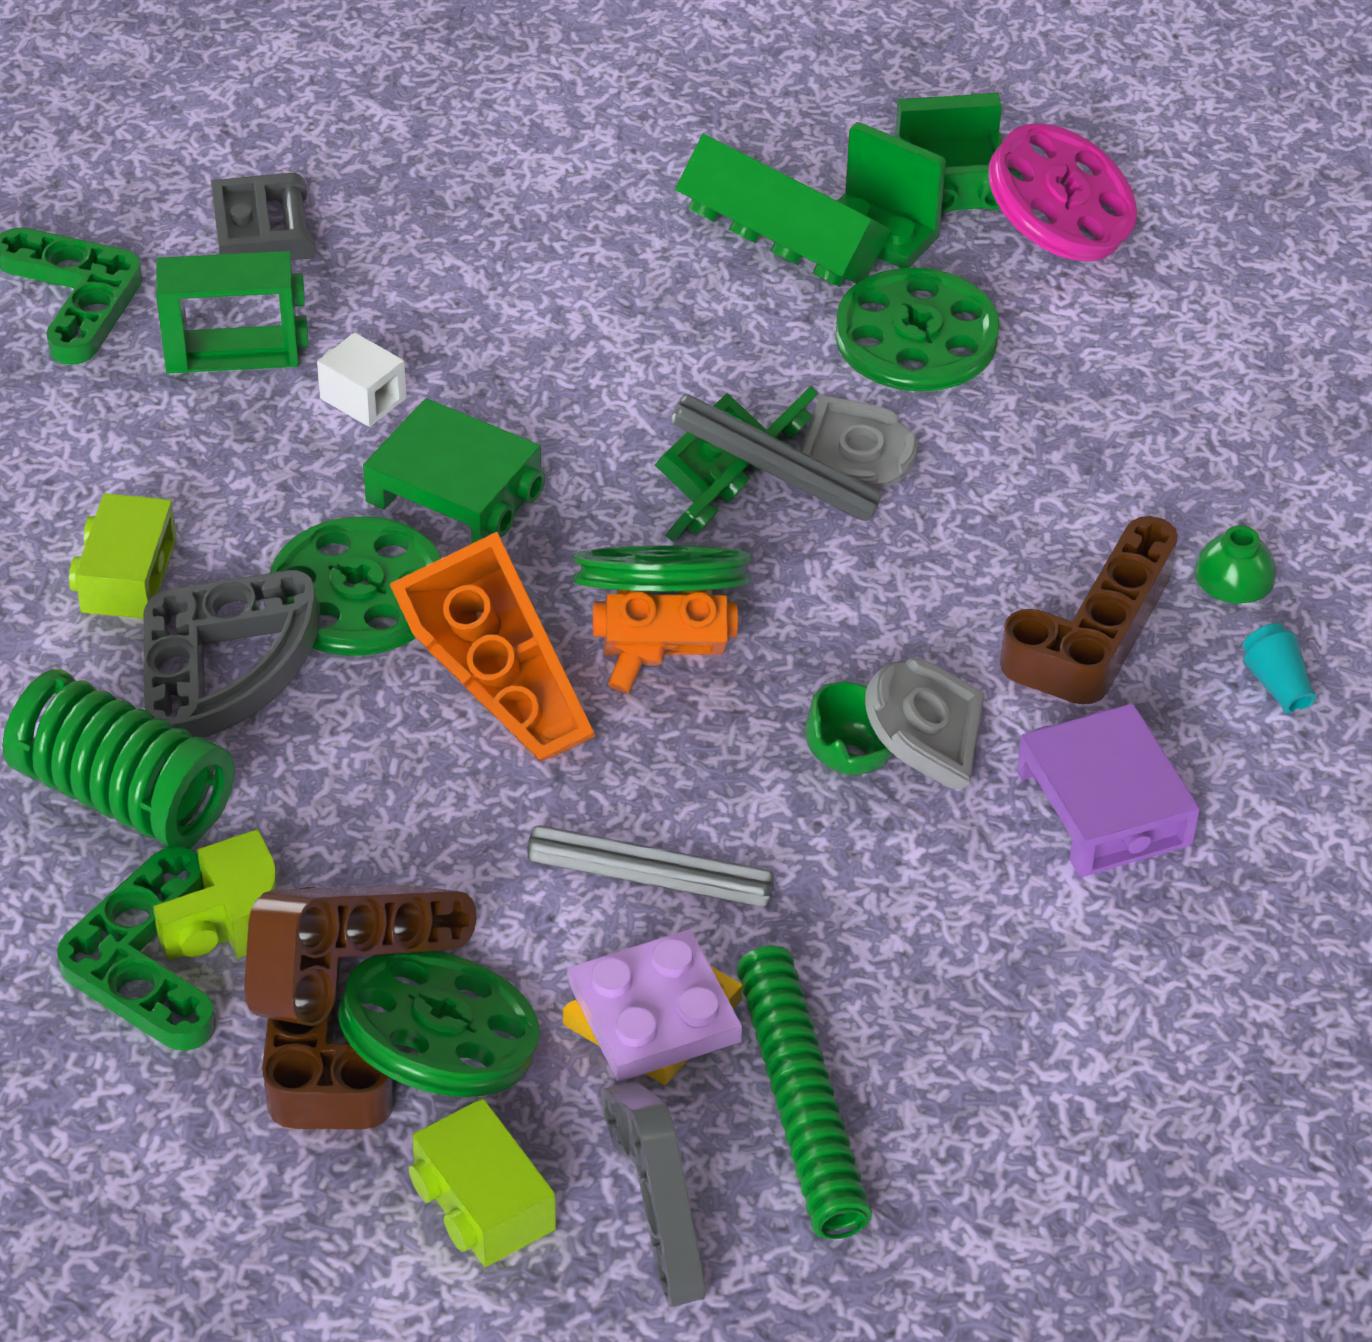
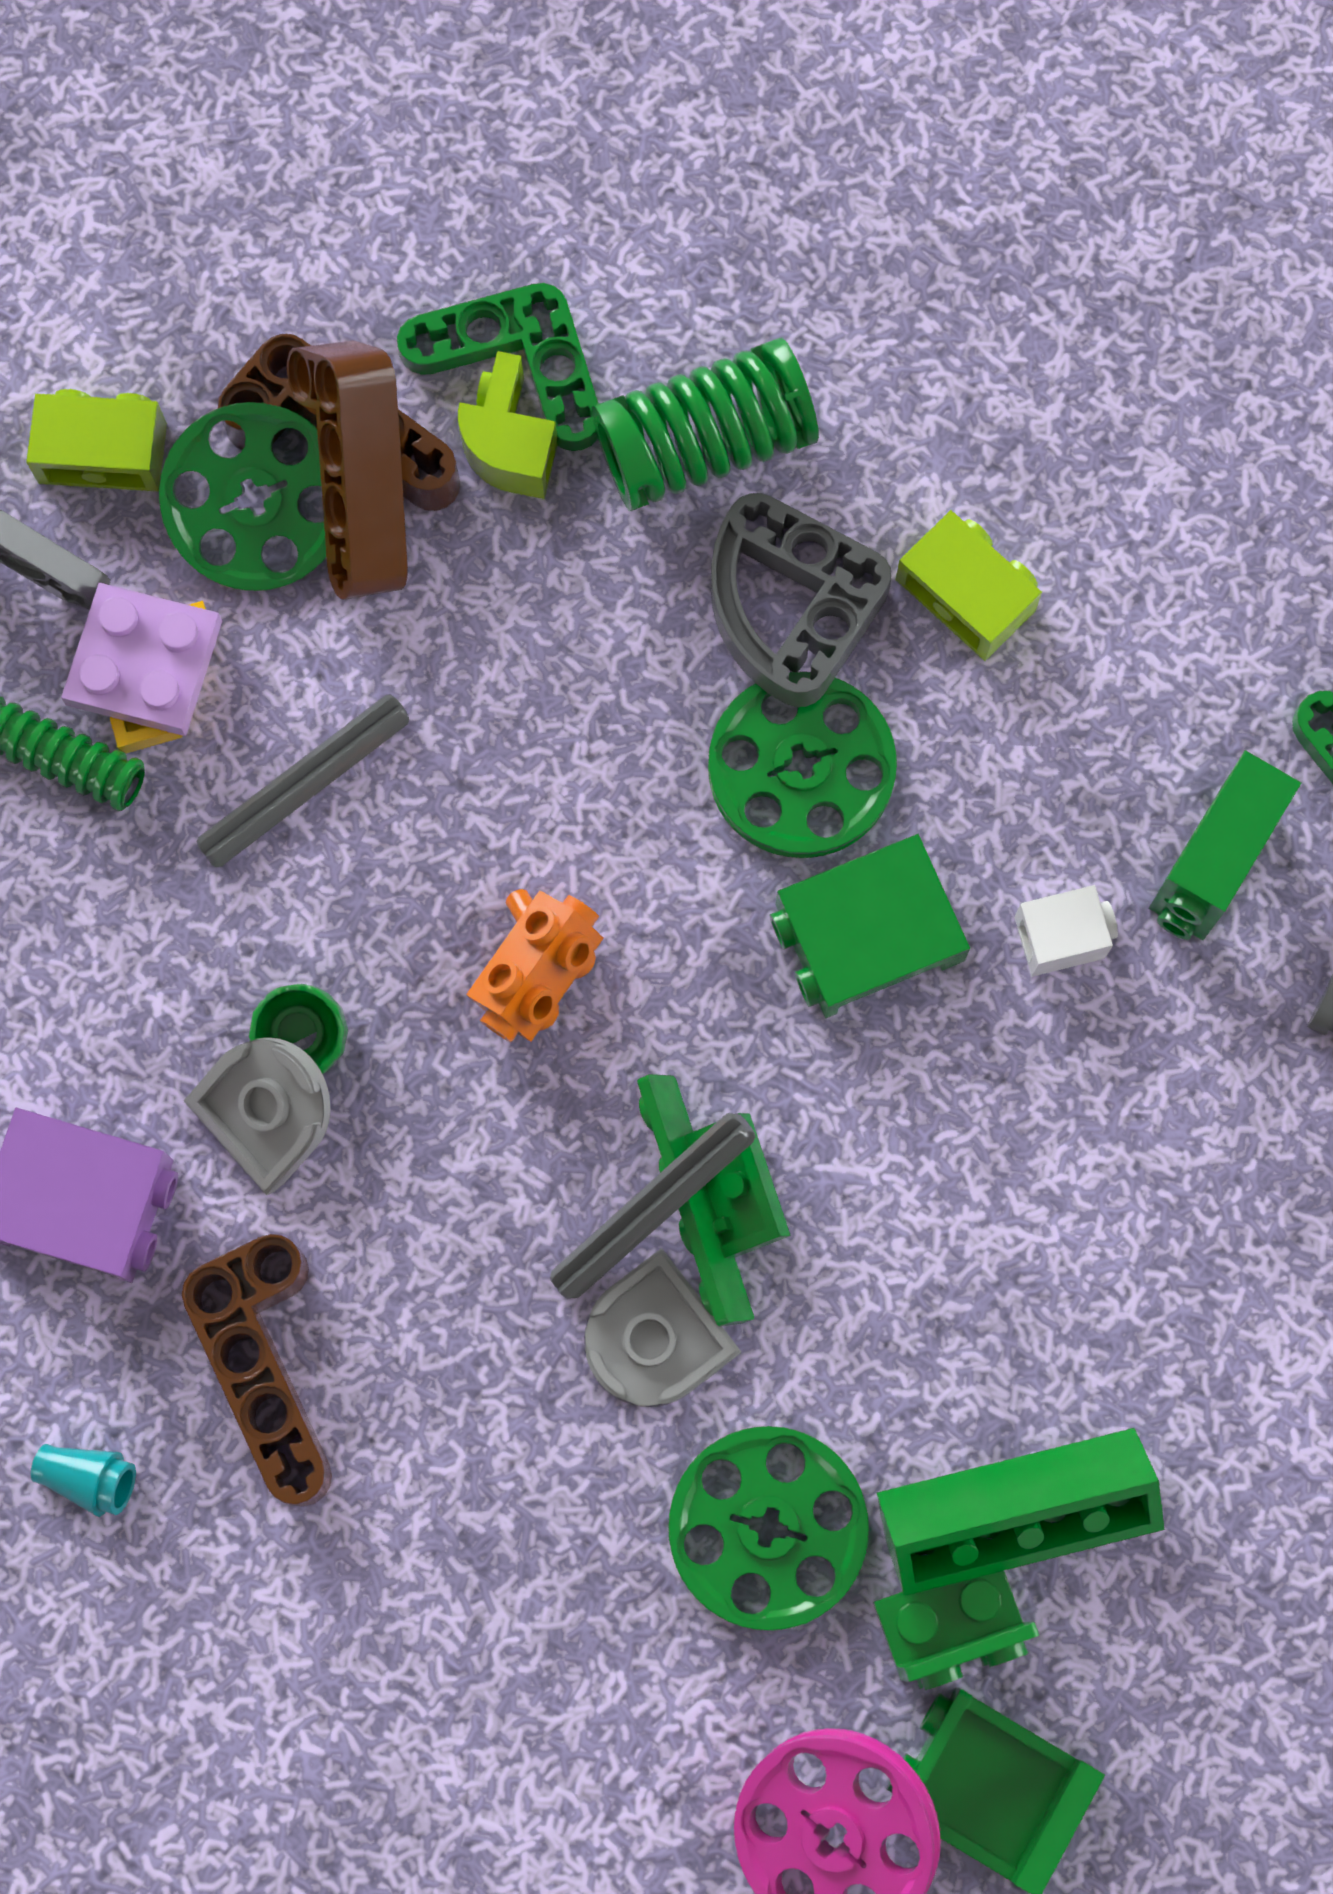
camera: 130 degrees right, 30 degrees up
(490, 638) = (642, 821): orange wedge -> none
(662, 568) = (557, 992): green wedge -> none
(1236, 566) = (234, 1557): green brick -> none

